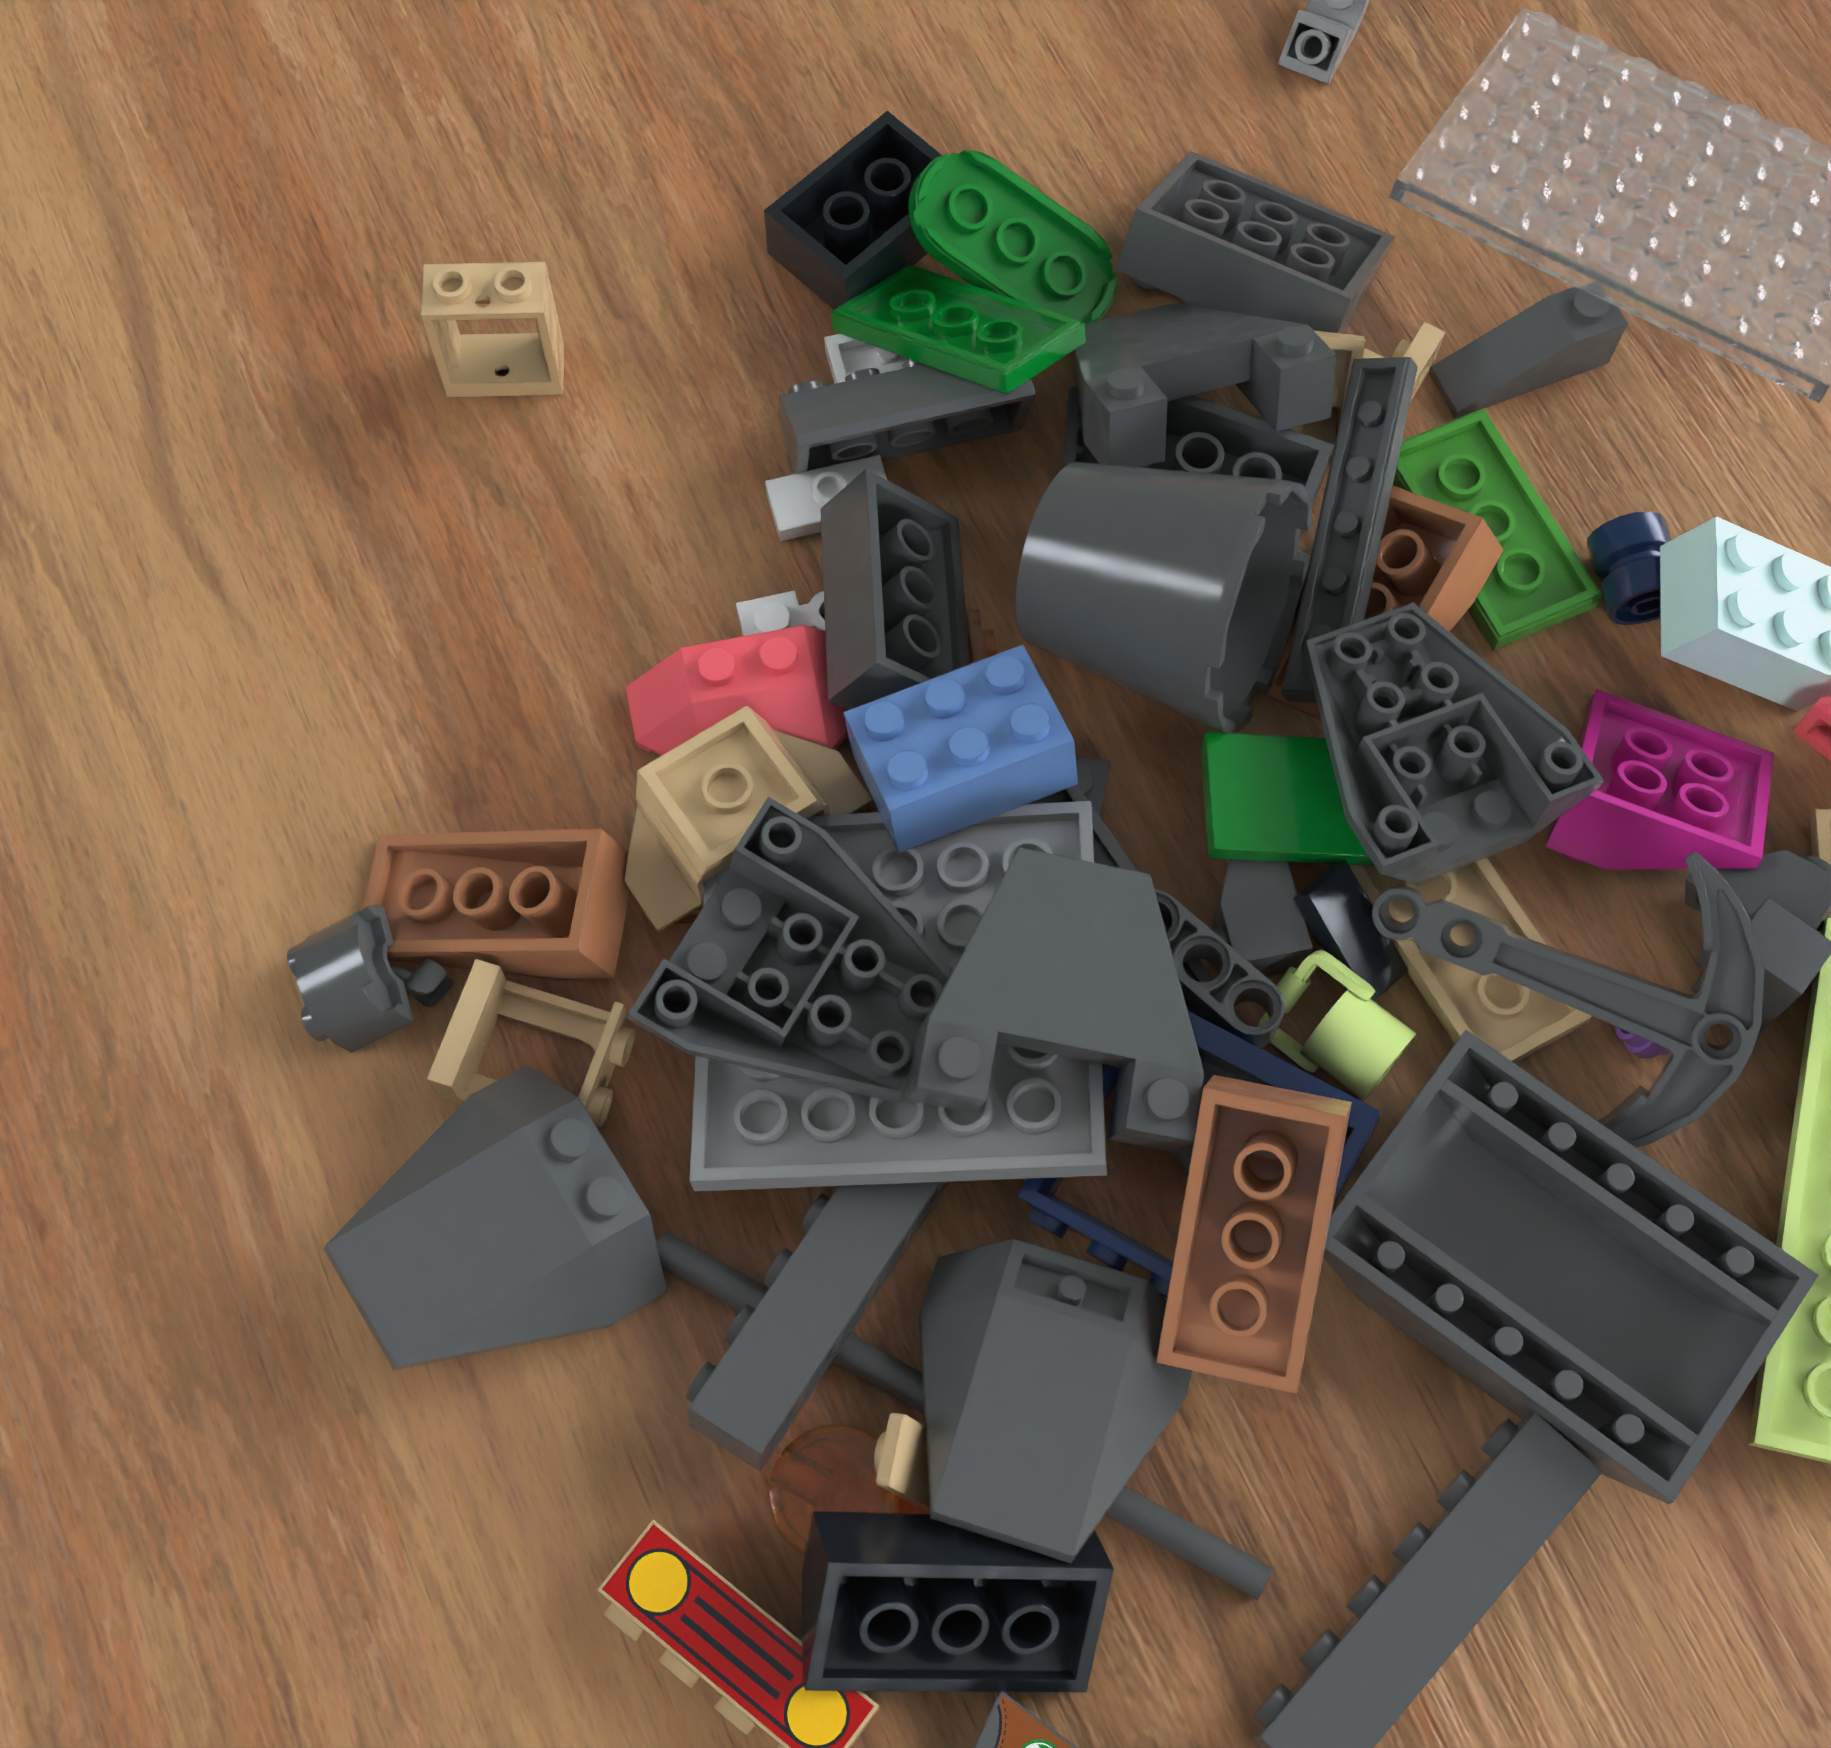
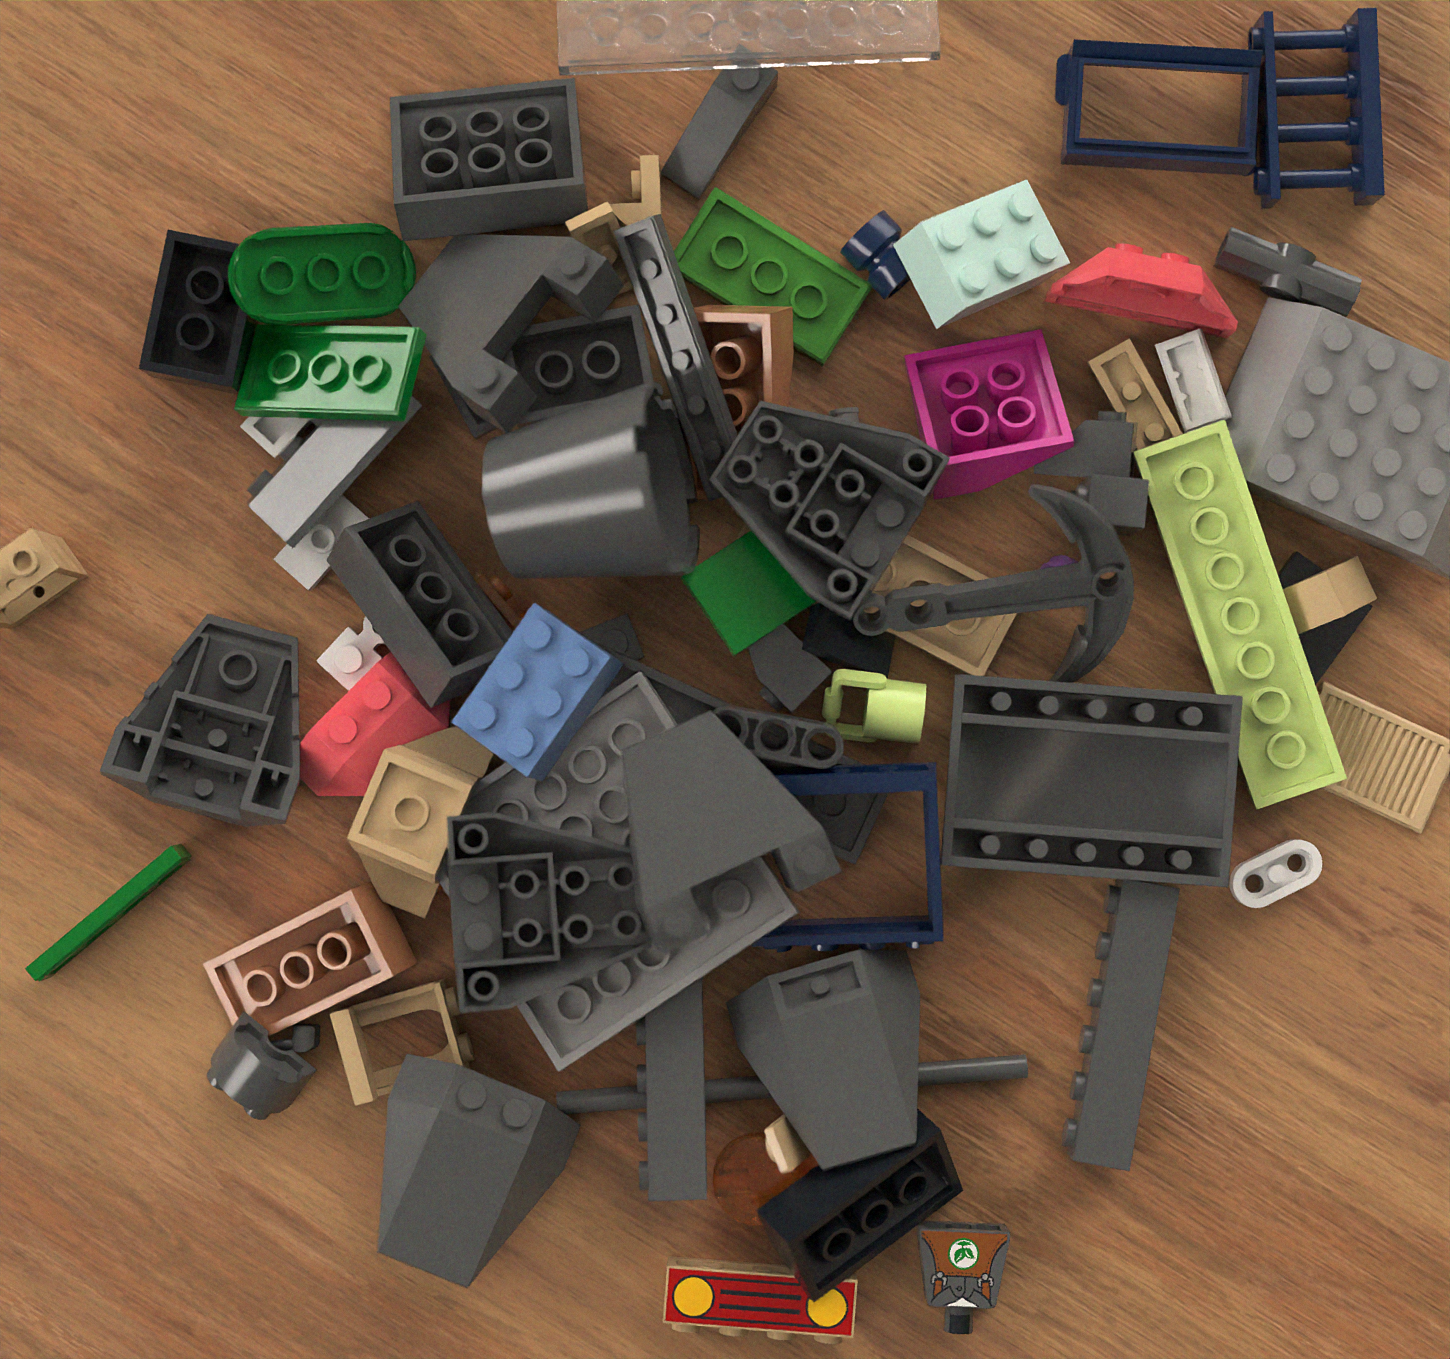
camera: 30 degrees left, 20 degrees up
(322, 712) = (109, 912): none -> green tile
(578, 602) = (217, 728): none -> dark grey wedge
(1253, 1232) = (903, 888): nougat slope -> none
(1732, 1544) = (1274, 874): none -> white plate

